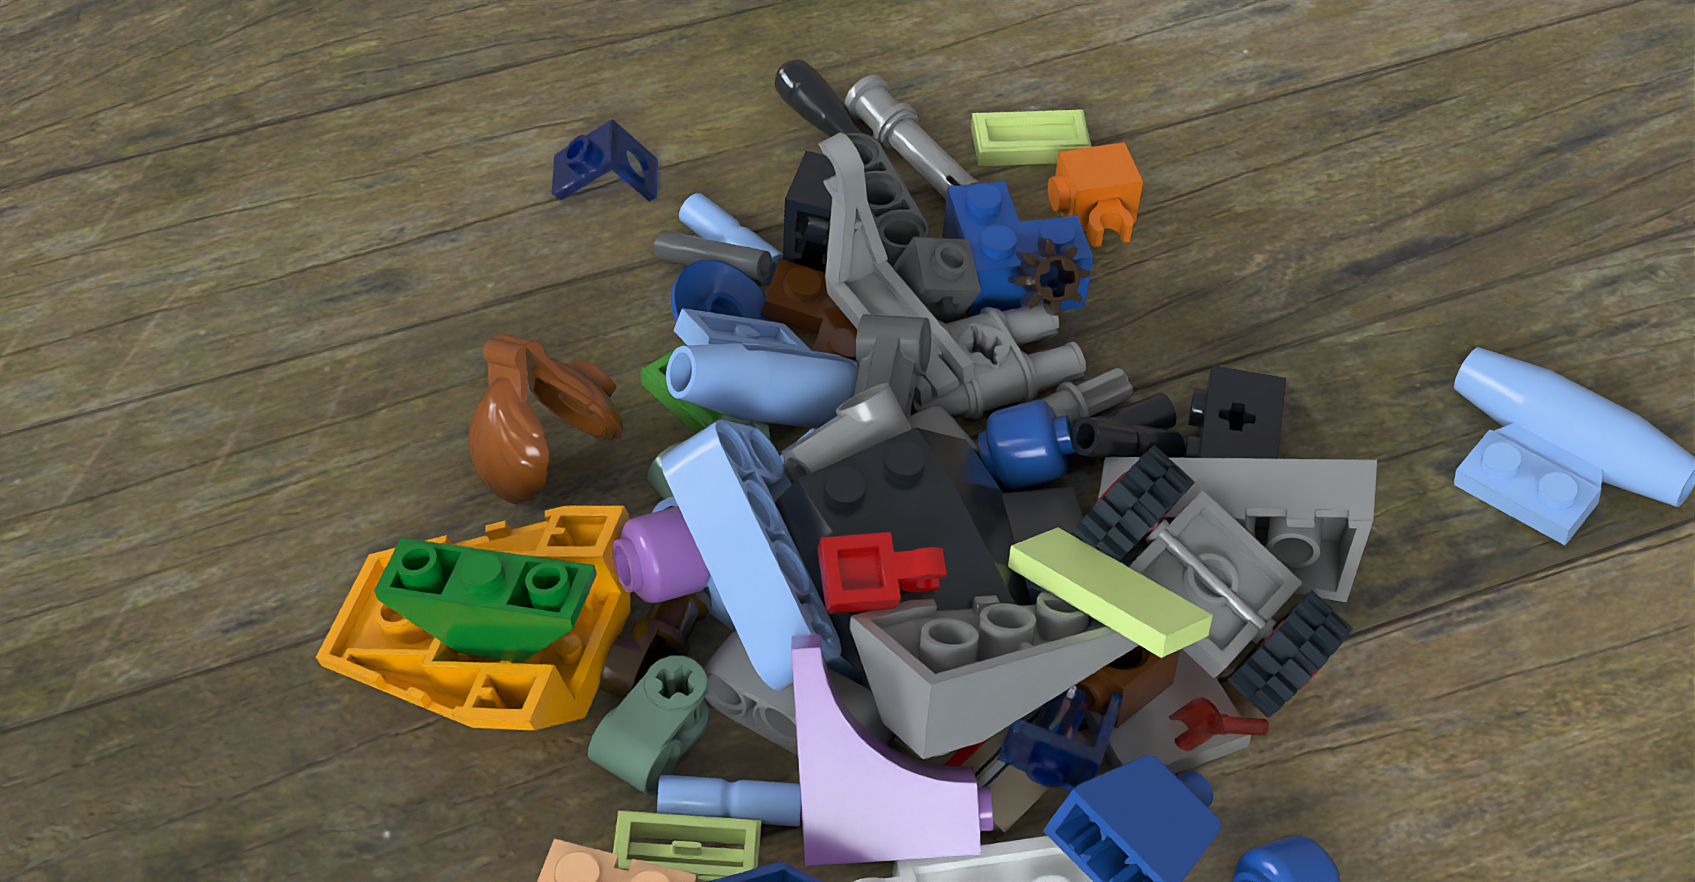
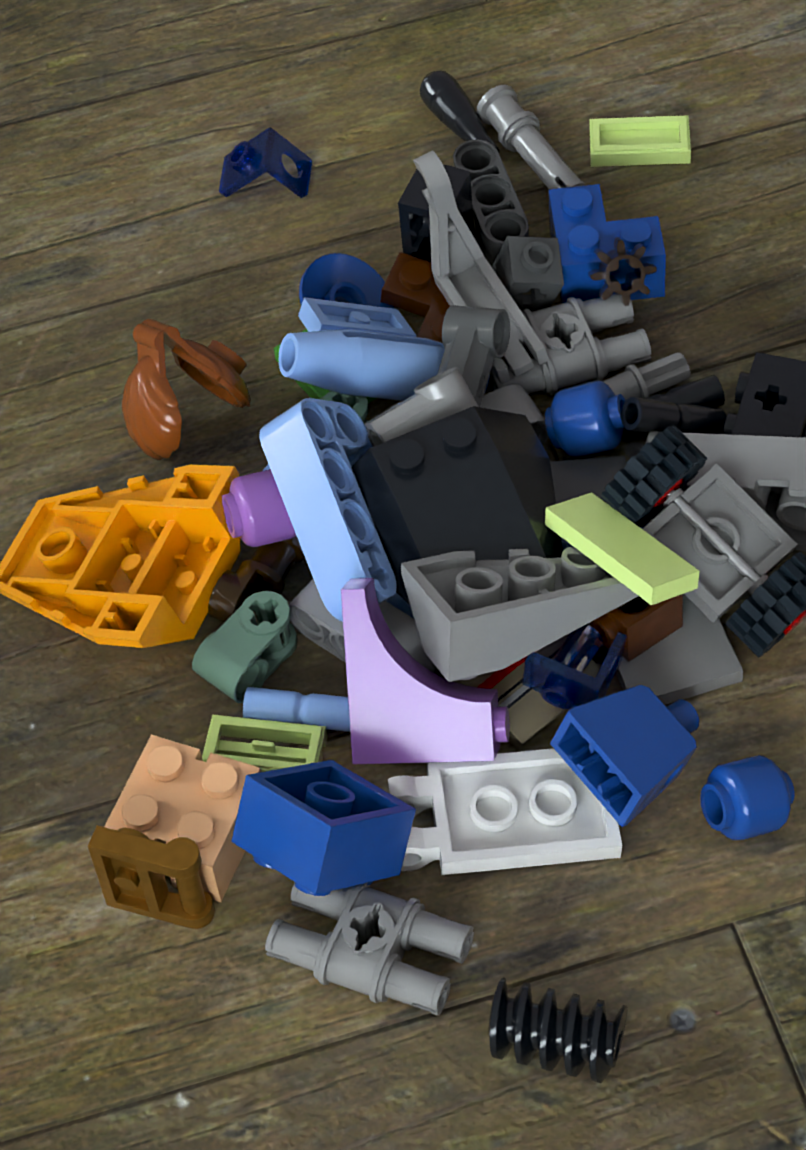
camera: 15 degrees right, 5 degrees up
(485, 598) = (113, 539): green slope -> none
(689, 249) = (328, 242): dark grey piece -> none
(716, 224) = (361, 229): light blue piece -> none
(867, 573) = (414, 527): red plate -> none
(1098, 187) = (687, 191): orange brick -> none
(1206, 721) = (700, 658): clear red hand -> none

